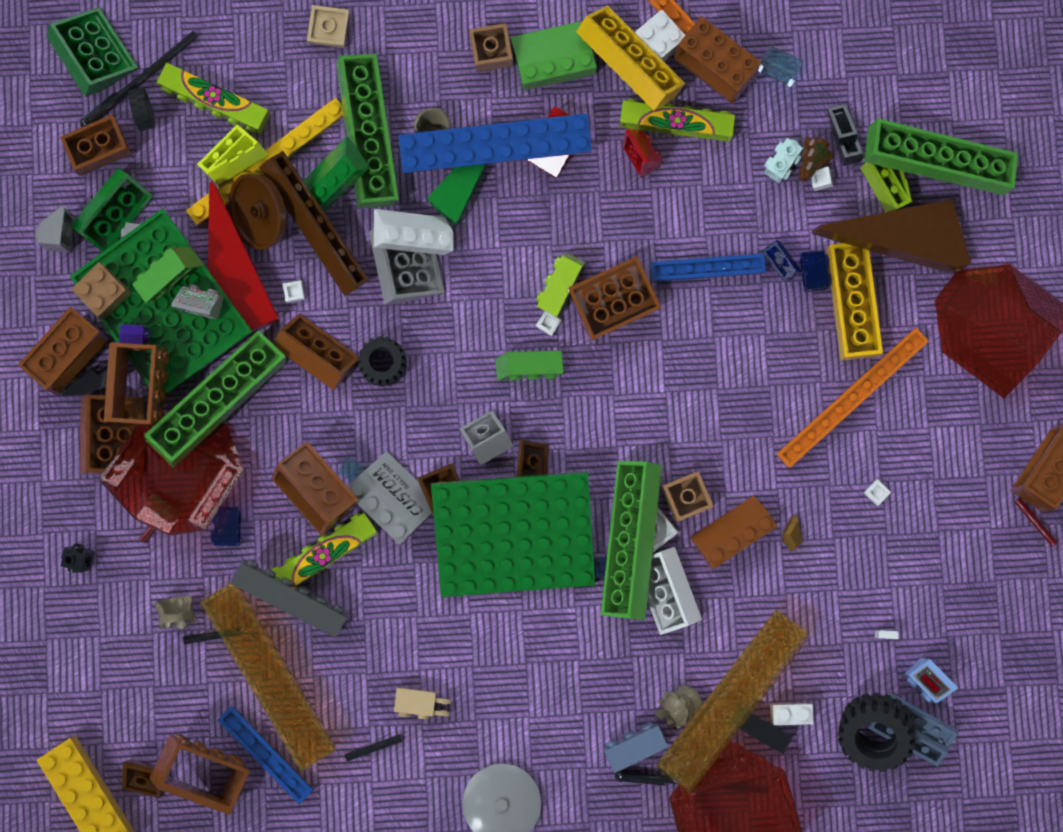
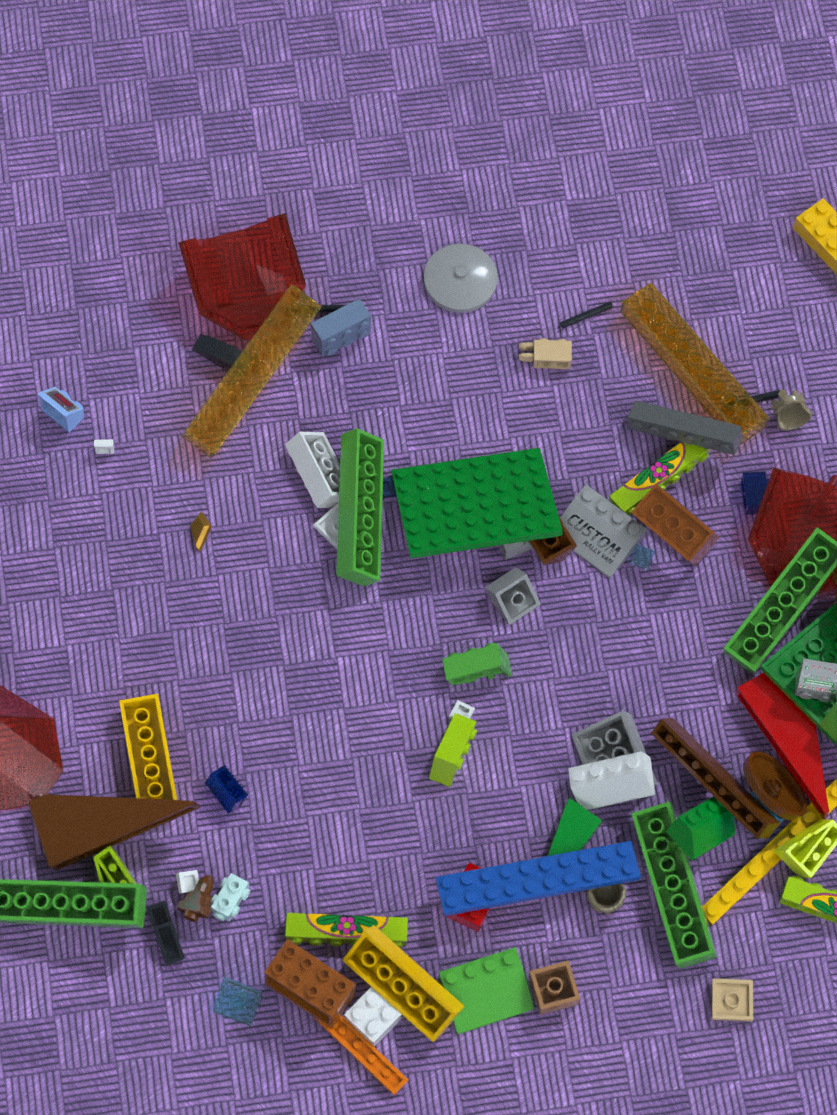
camera: 175 degrees right, 15 degrees down
(136, 778) = (795, 275): reddish brown slope -> none
(231, 791) = (744, 255): dark orange hose -> none
(265, 755) = (687, 300): blue plate -> none
(293, 291) = (725, 722): white tile -> none
(316, 351) = (693, 663): dark orange slope -> none
(382, 345) = (629, 642): black tyre -> none
(532, 458) = (465, 576): reddish brown slope -> none
(614, 298) = (396, 732): dark orange slope -> none
(640, 151) = (381, 886): red slope -> none
(679, 706) = (300, 368): dark tan hair -> none
(687, 496) = (308, 553): medium nougat brick -> none
(708, 267) = (302, 780): blue plate -> none
(733, 532) = (259, 526): dark orange slope -> none
(791, 714) = (193, 370): white brick -> none
(814, 271) = (191, 783): clear blue brick -> none
(852, 398) = (145, 664): orange plate -> none
(871, 753) = (113, 353): black tyre -> none
(877, 492) = (117, 577): white tile -> none
(932, 734) = (77, 364): sand blue brick -> none

